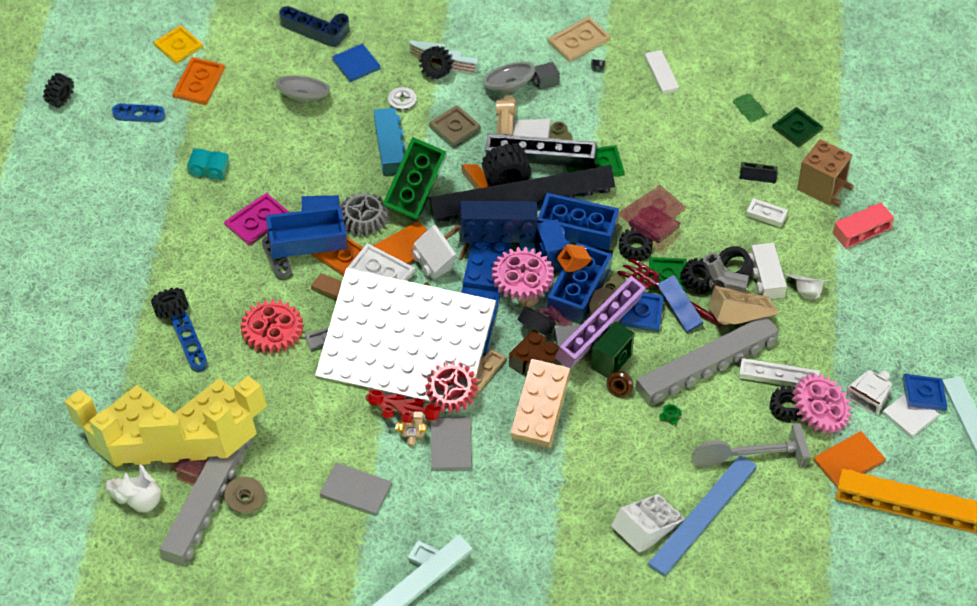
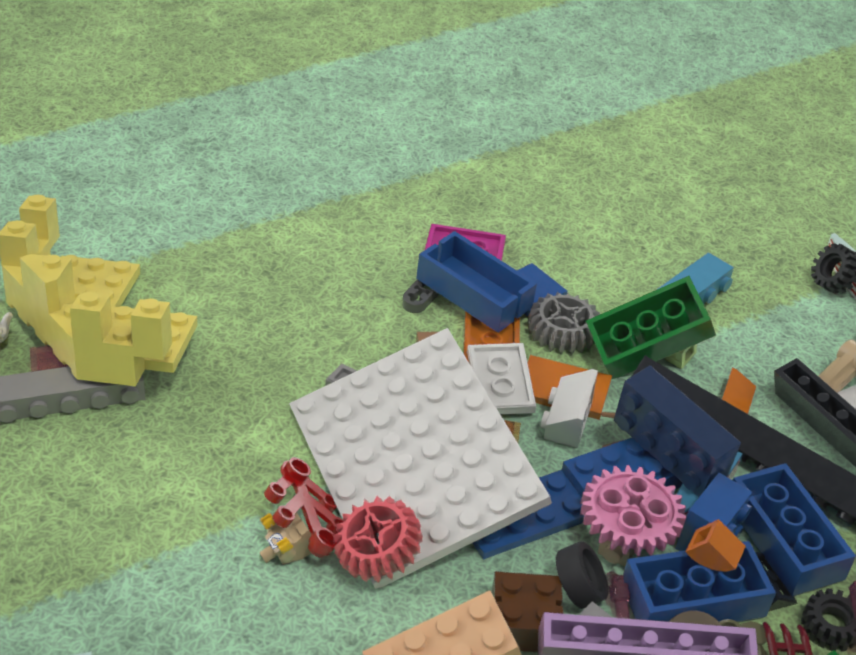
camera: 50 degrees right, 10 degrees down
(58, 90) = (454, 31): black tyre -> none
(151, 109) = (507, 112): blue beam -> none
(169, 303) = (273, 232): black tyre -> none
(178, 44) = (613, 91): yellow tile -> none
(191, 340) = (238, 275): blue beam -> none
(198, 81) = (588, 124): orange tile -> none
(208, 164) = (491, 176): teal brick -> none
(245, 487) = (40, 422): dark tan dish -> none
(271, 326) = (324, 329): coral gear -> none
(302, 88) = (666, 189): light grey dish -> none
(312, 27) = (756, 166): dark blue beam -> none
(355, 489) = (141, 540): light grey tile -> none
(356, 62) = (756, 217): blue tile -> none
(408, 95) = (757, 267): white gear -> none
(451, 444) = (299, 602): light grey tile -> none
(455, 126) = (780, 335): dark tan plate -> none
(488, 368) = (455, 571): tan tile -> none
(506, 165) = (777, 399): black tyre -> none

